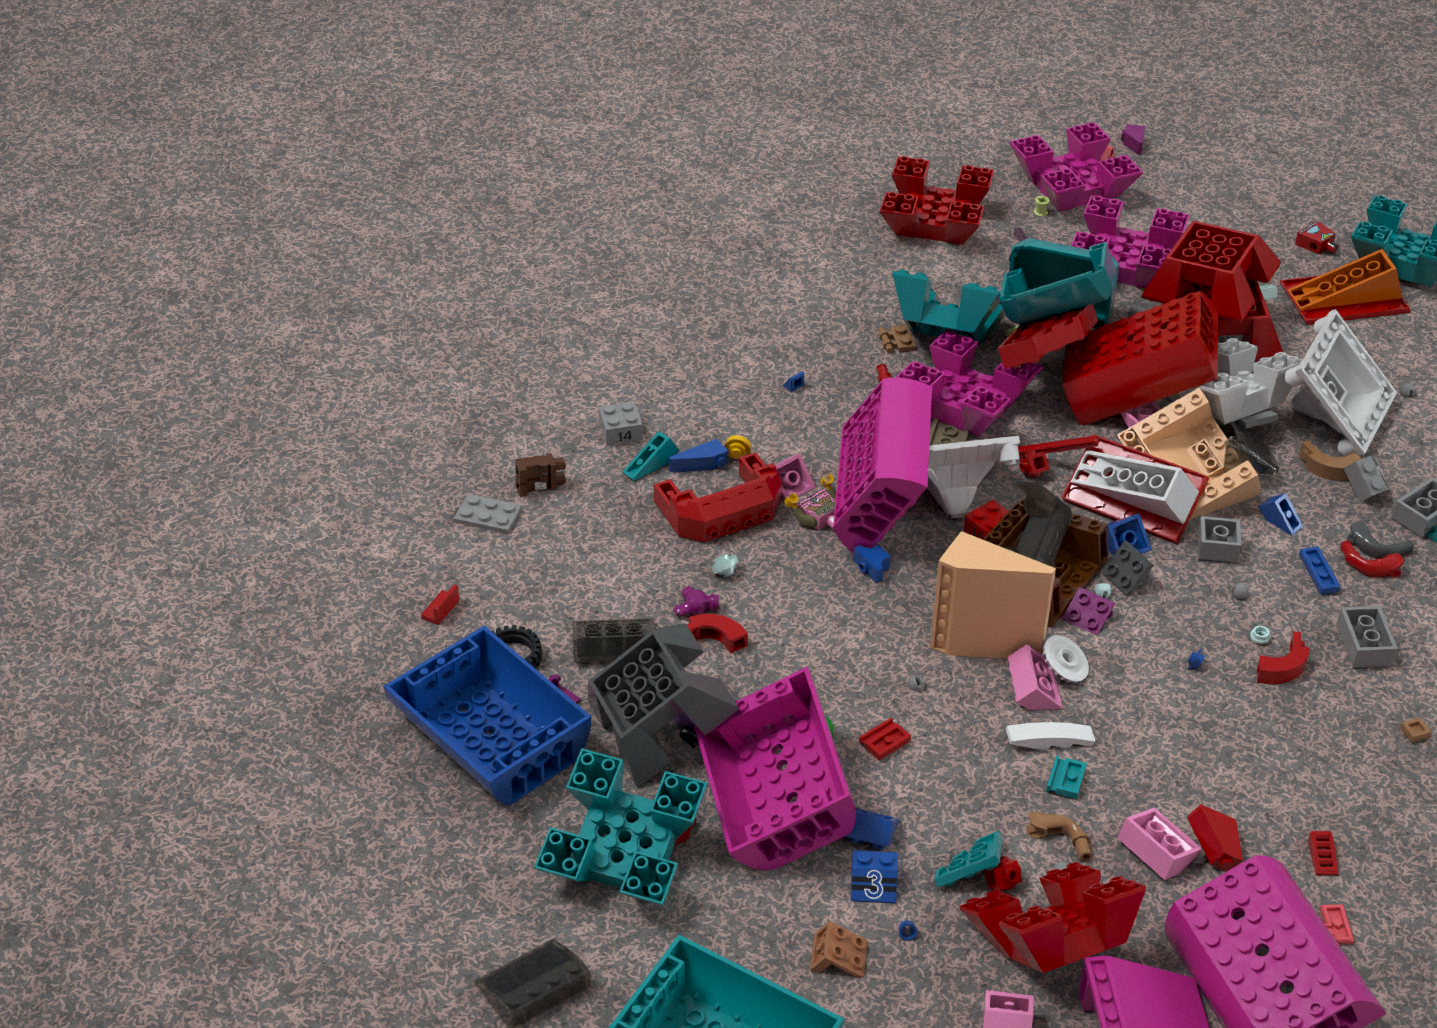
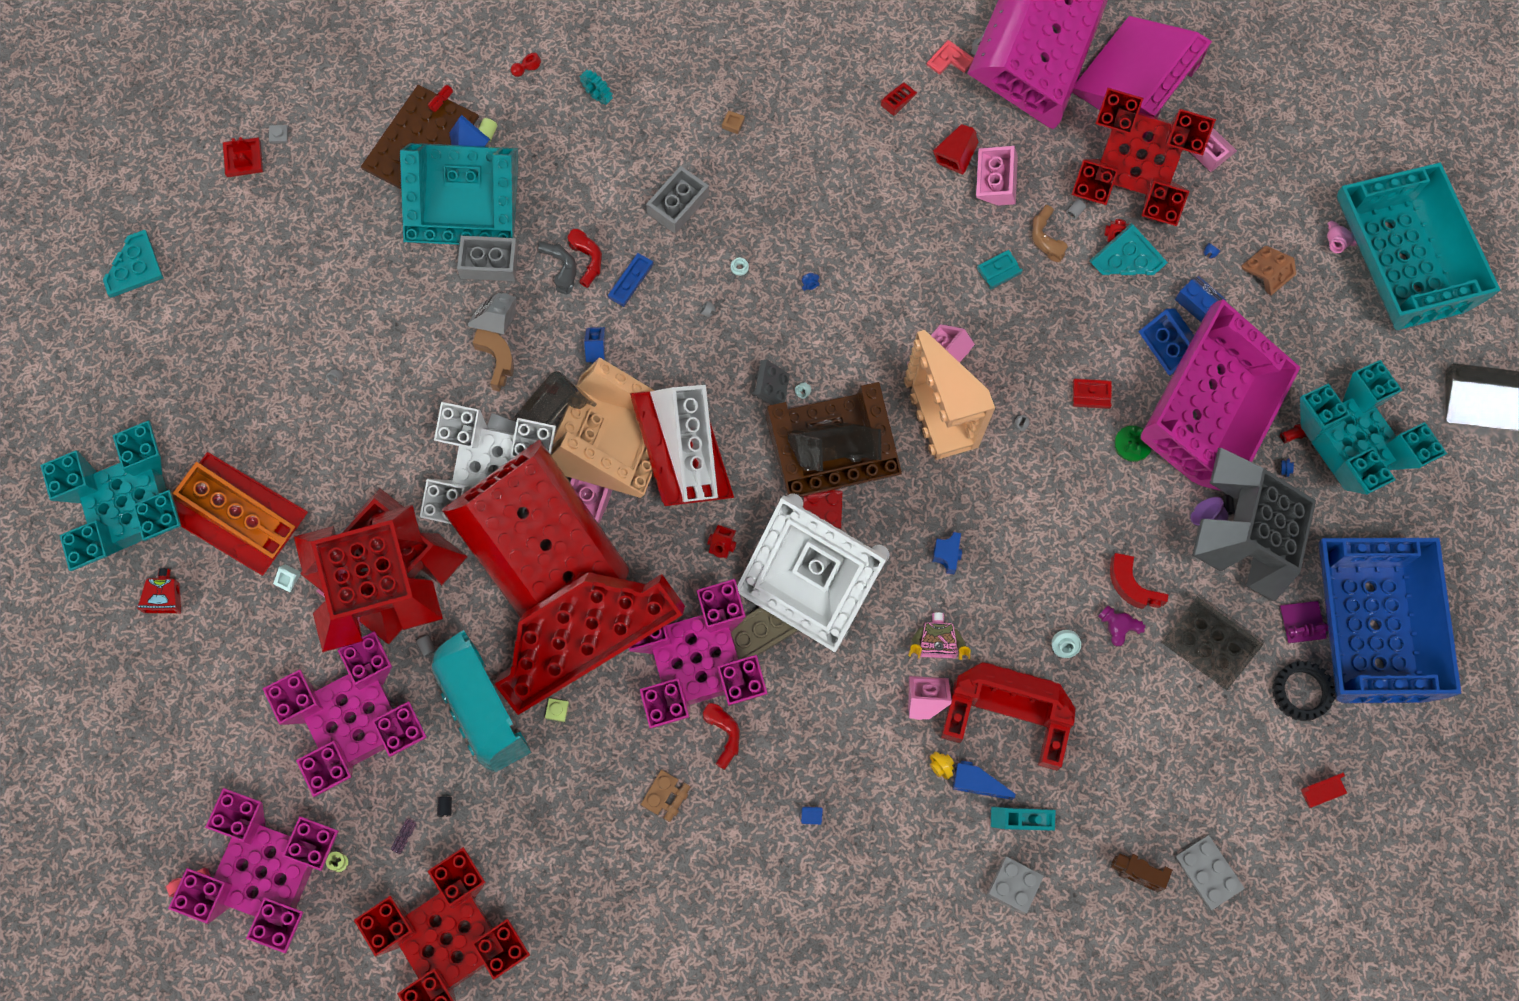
camera: 140 degrees left, 30 degrees up
(882, 461) = (884, 595): dark pink slope -> none
(923, 313) = (627, 745): teal slope -> none
(1033, 305) = (541, 648): teal slope -> none
(1048, 734) = (978, 304): white slope -> none
(1062, 445) = (695, 534): red axle -> none
(1065, 658) = (898, 347): white gear -> none
(1088, 611) = (836, 379): magenta hinge -> none
(1130, 530) = (736, 419): blue slope -> none
(1133, 137) = (123, 887): magenta slope -> none
(1219, 539) = (673, 355): light grey brick -> none
(1286, 668) = (756, 225): red arch -> none
(1341, 385) = (413, 387): white piece -> none

